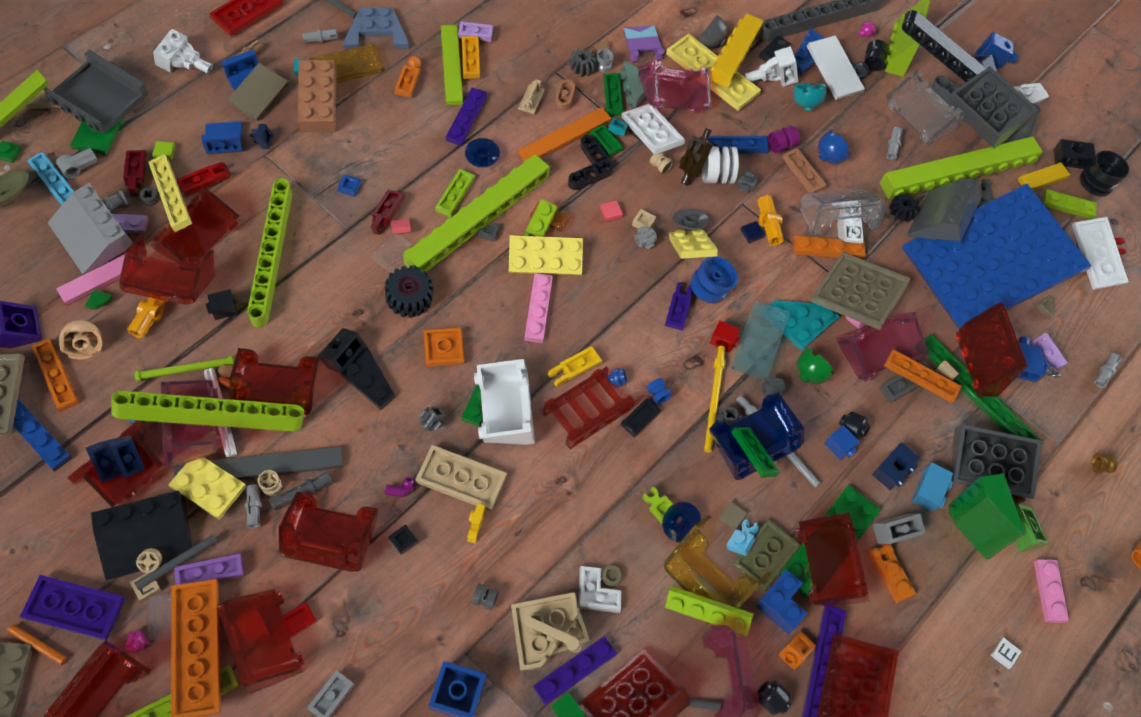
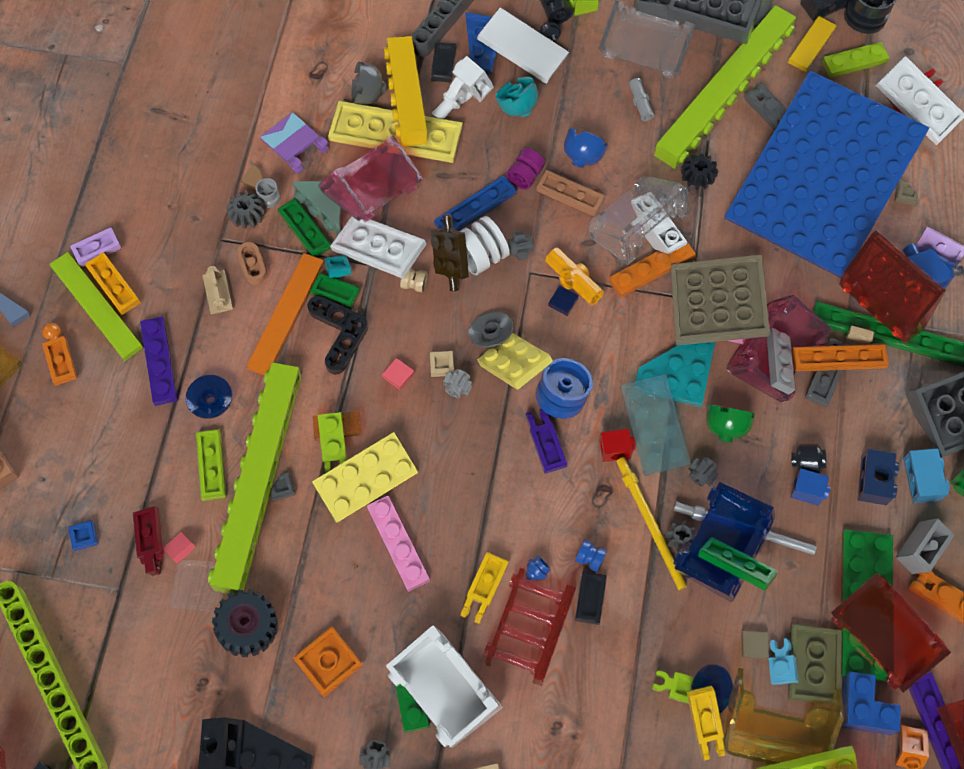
camera: 25 degrees left, 5 degrees up
(664, 535) = (706, 720): none -> yellow hinge
(877, 351) = (780, 361): none -> light grey plate
(947, 211) = (747, 151): dark grey slope -> none

